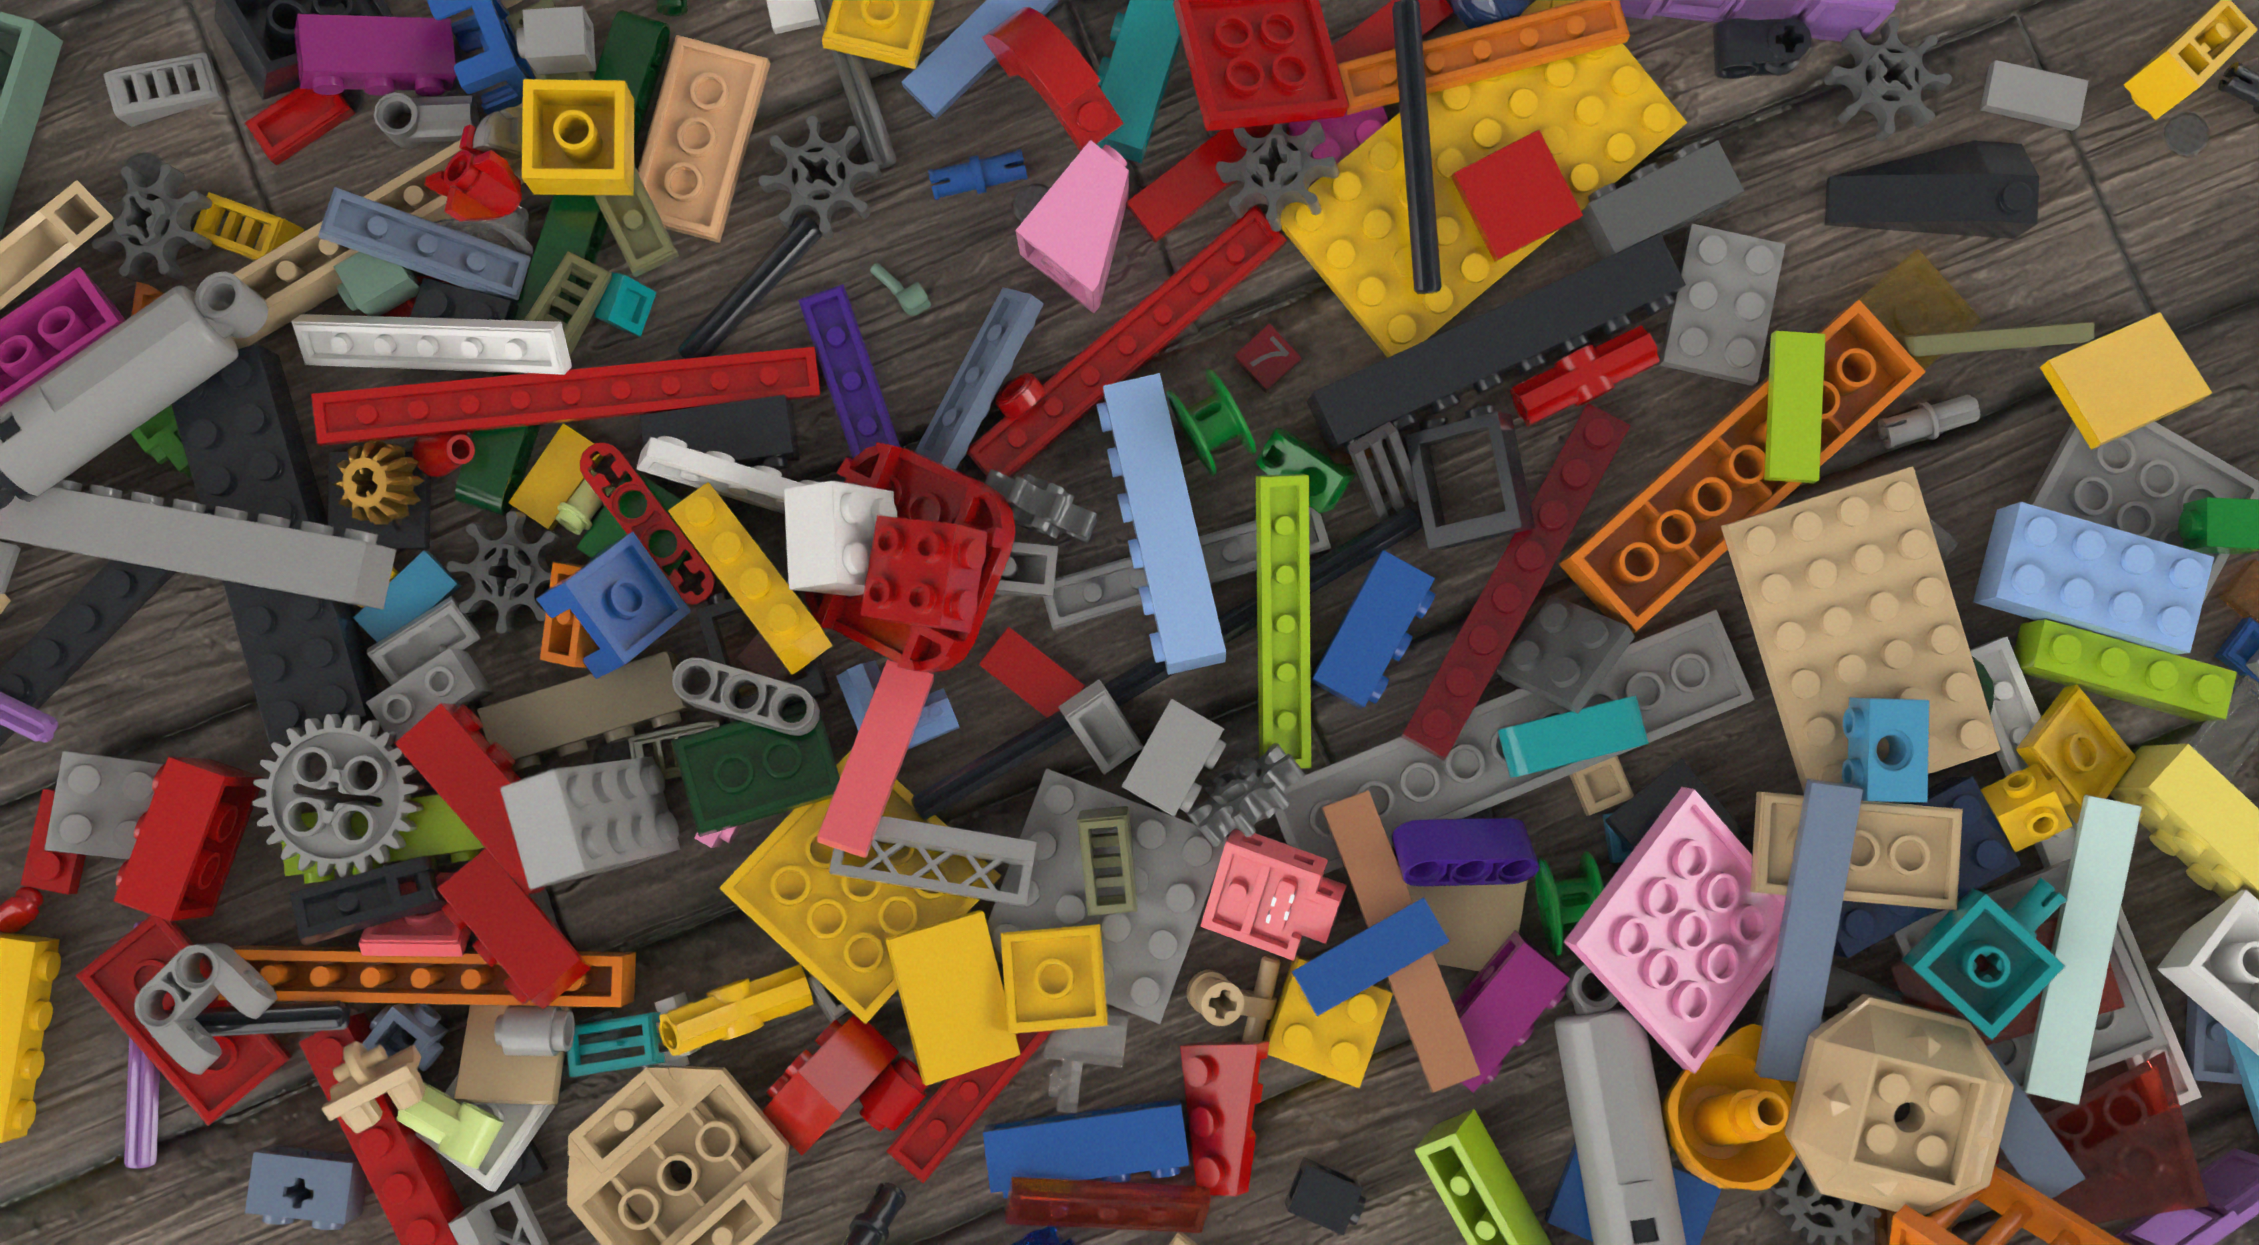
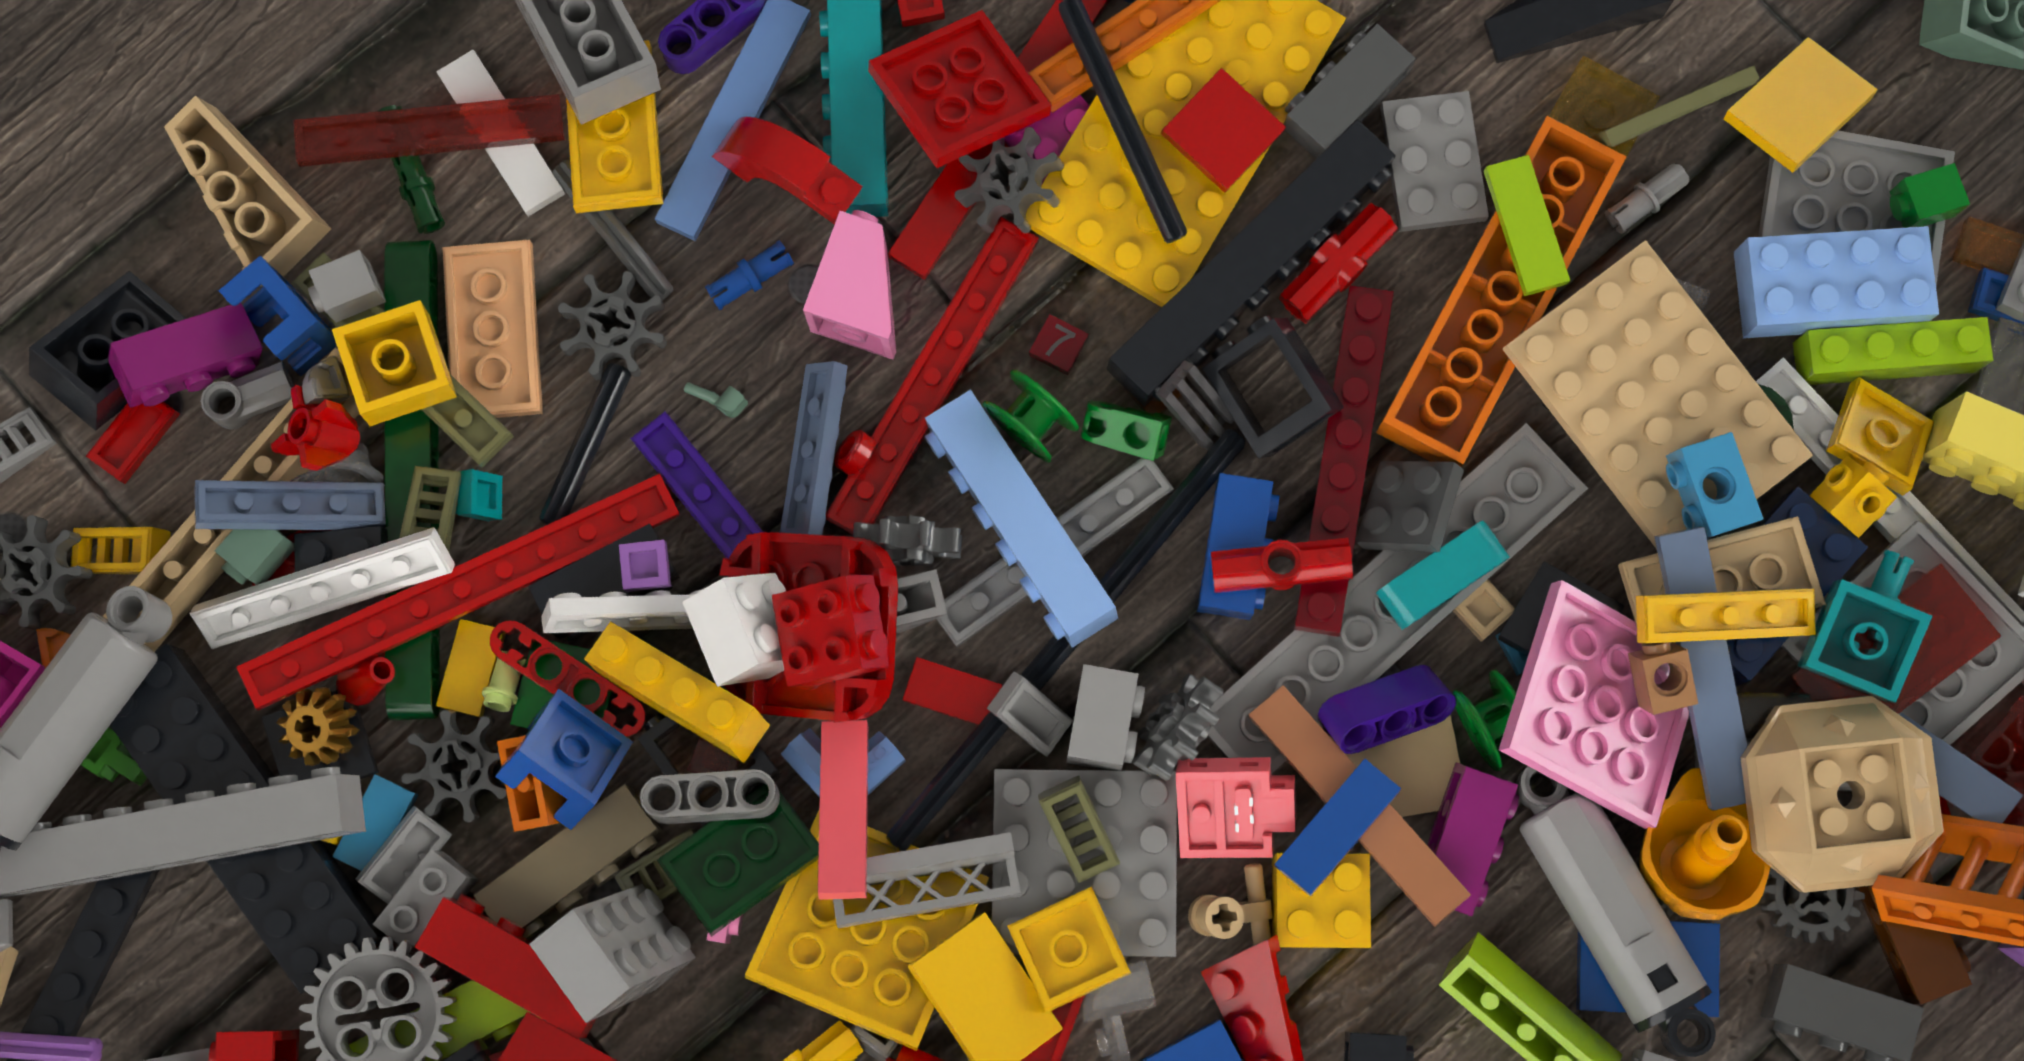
camera: 15 degrees left, 5 degrees down
(763, 436) = (644, 565): none -> medium lavender plate
(1284, 614) = (1154, 559): lime plate -> none
(1443, 678) = (1312, 564): none -> red piece
(1766, 945) = (1673, 693): none -> medium nougat brick
(1849, 887) = (1725, 615): none -> yellow tile
(2084, 946) = (1945, 596): light aqua tile -> none

